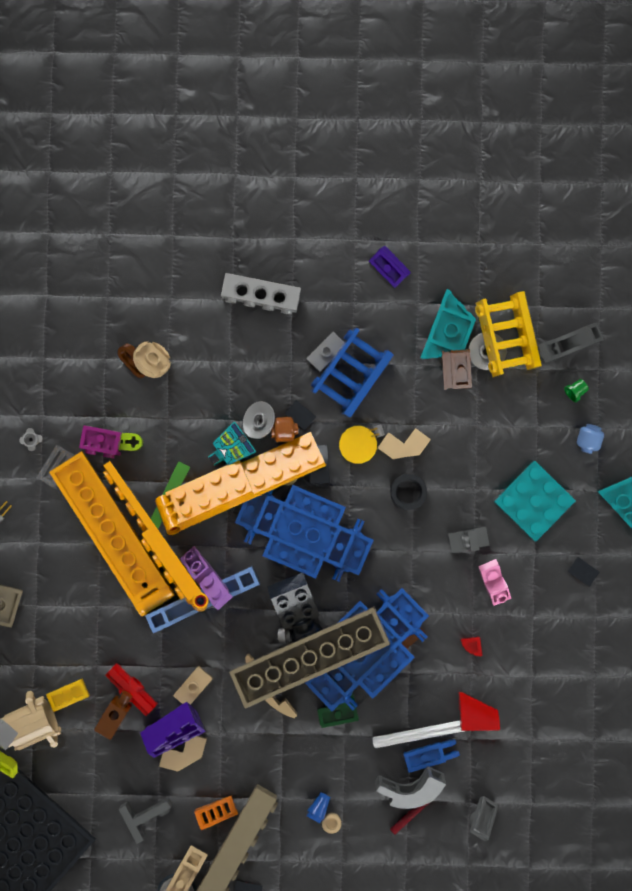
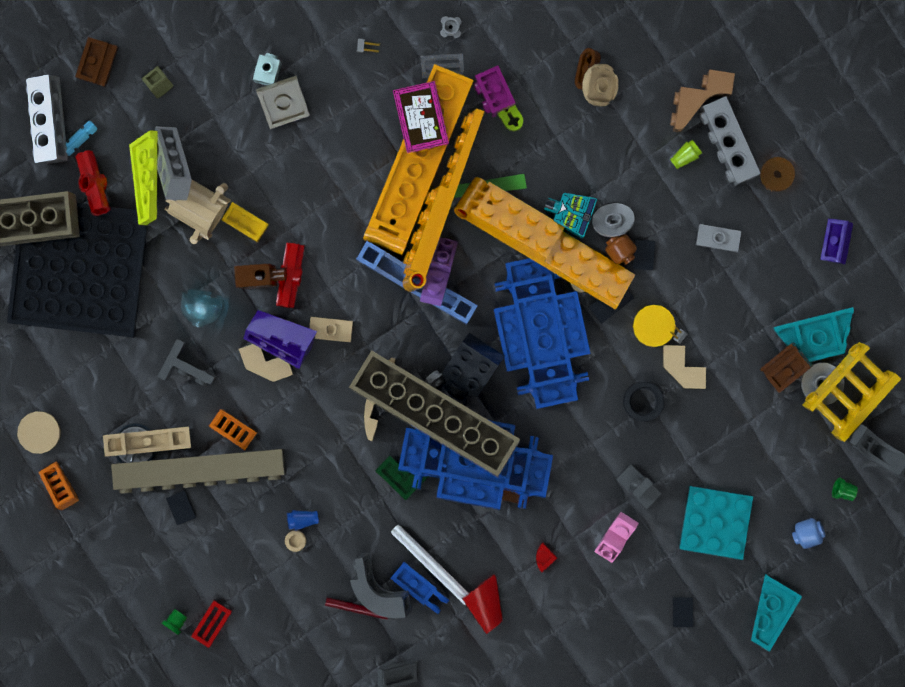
camera: 60 degrees right, 0 degrees up
(81, 510) = (420, 117): none -> tile
(107, 773) = (200, 307): none -> clear light blue cylinder
(210, 299) = (690, 100): none -> medium nougat arch
(248, 332) = (686, 154): none -> lime cone
(306, 283) = (777, 164): none -> clear orange piece
(370, 374) = (726, 292): blue fence -> none

